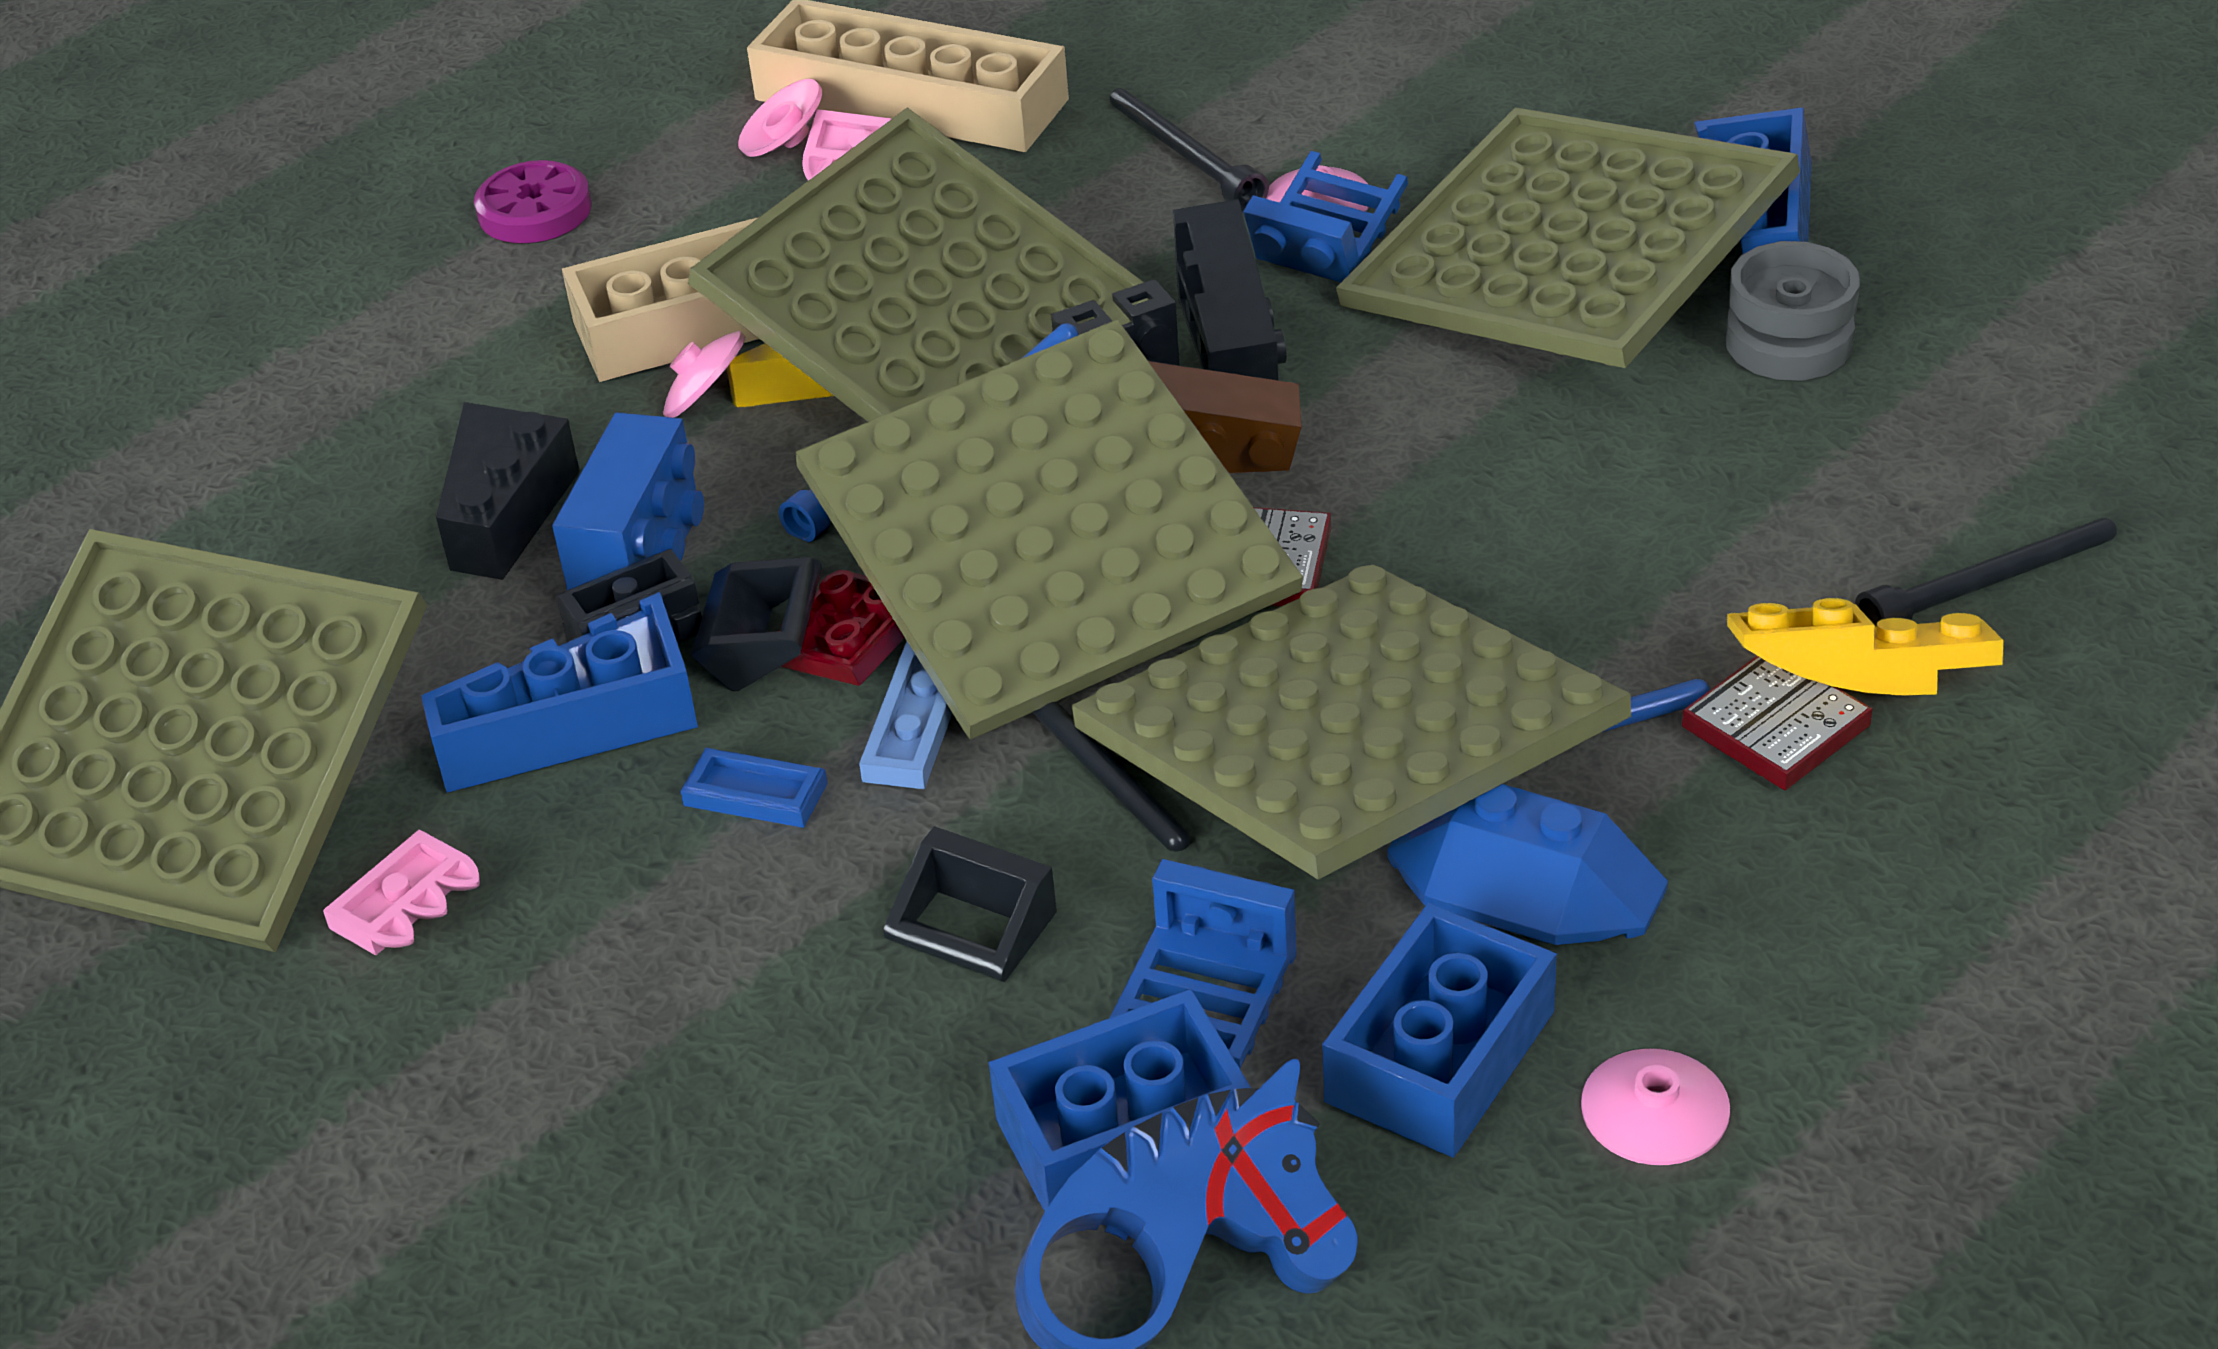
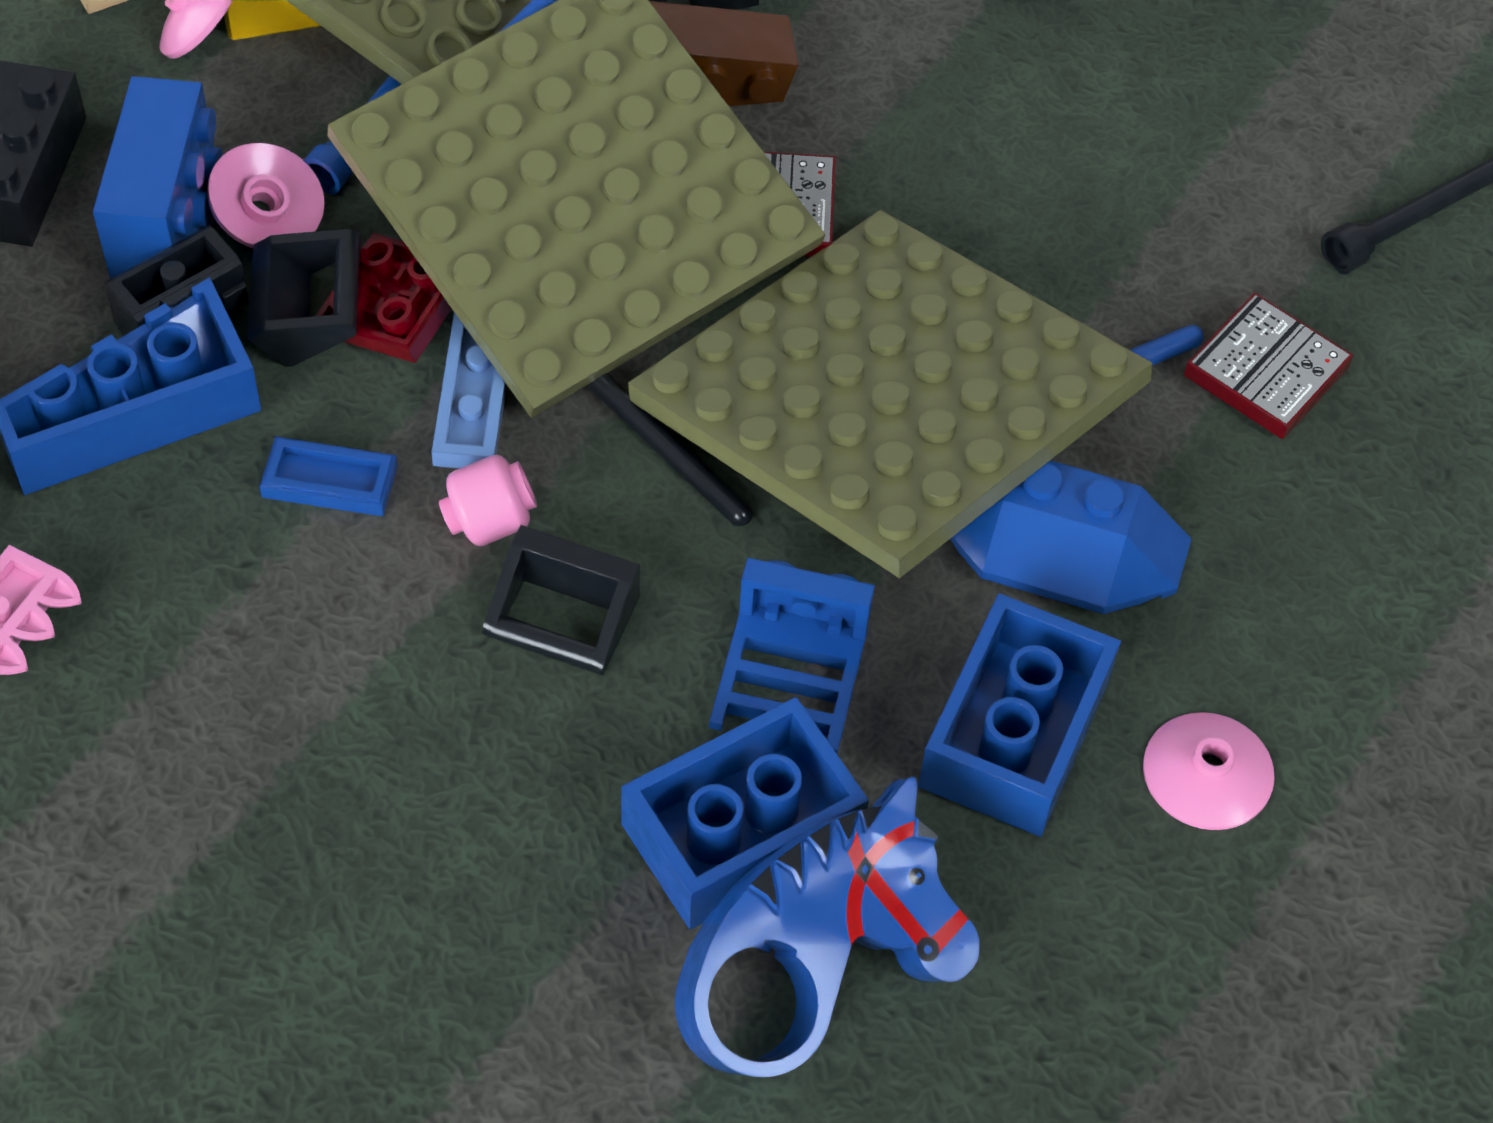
camera: 15 degrees left, 15 degrees up
(734, 517) = (269, 176): none -> bright pink dish
(906, 807) = (487, 500): none -> bright pink head
(1846, 650) = (1329, 299): yellow slope -> none

